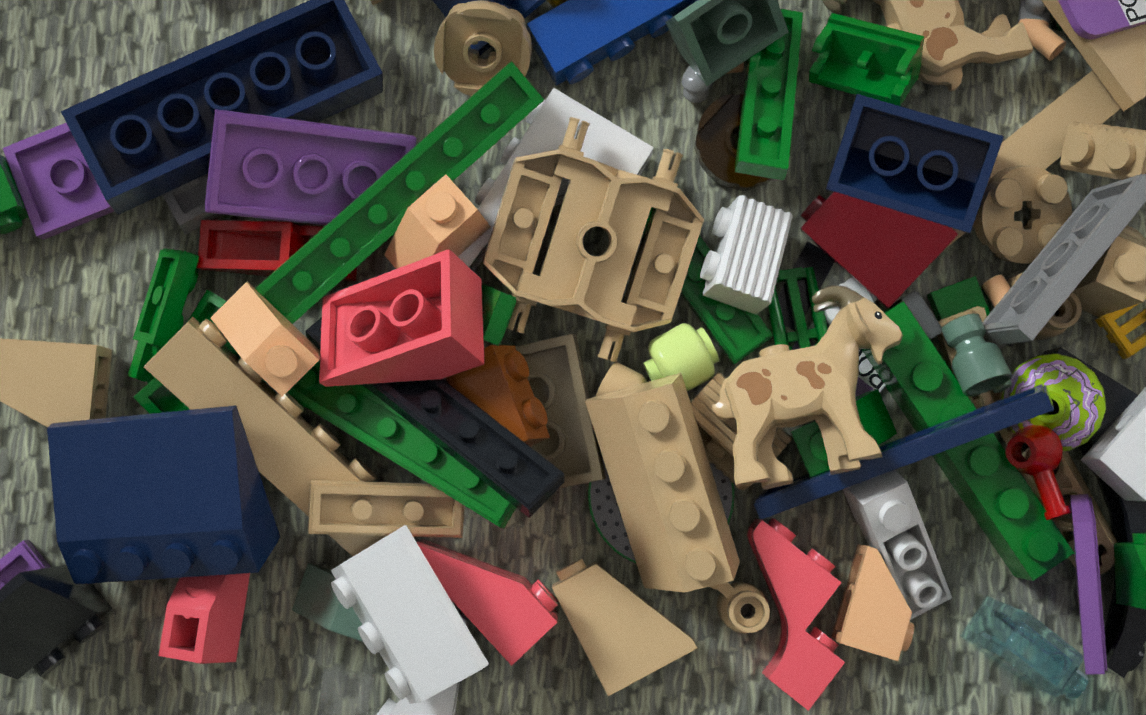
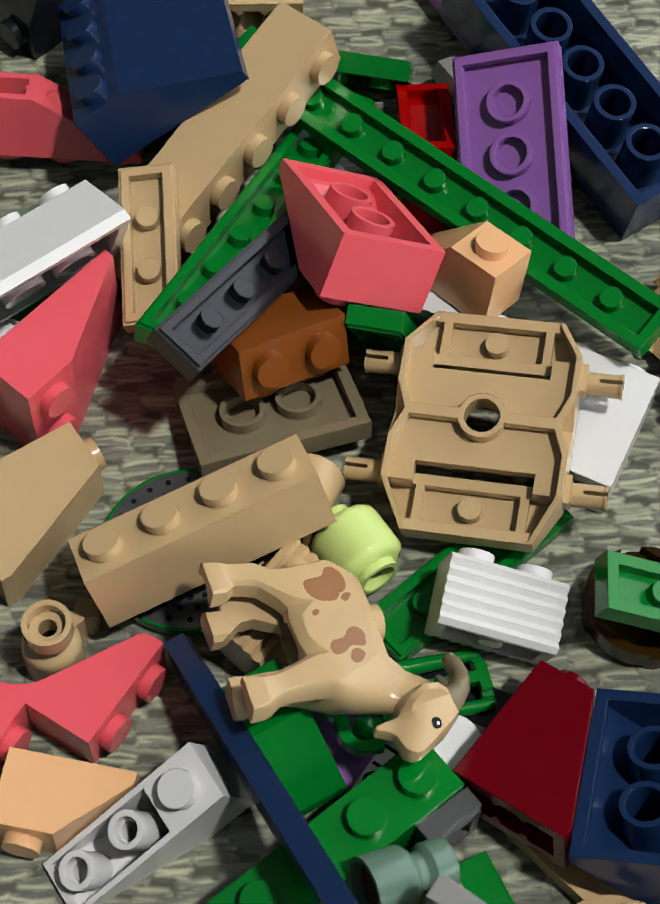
camera: 85 degrees right, 25 degrees down
(266, 339) = (321, 117): light nougat slope -> none

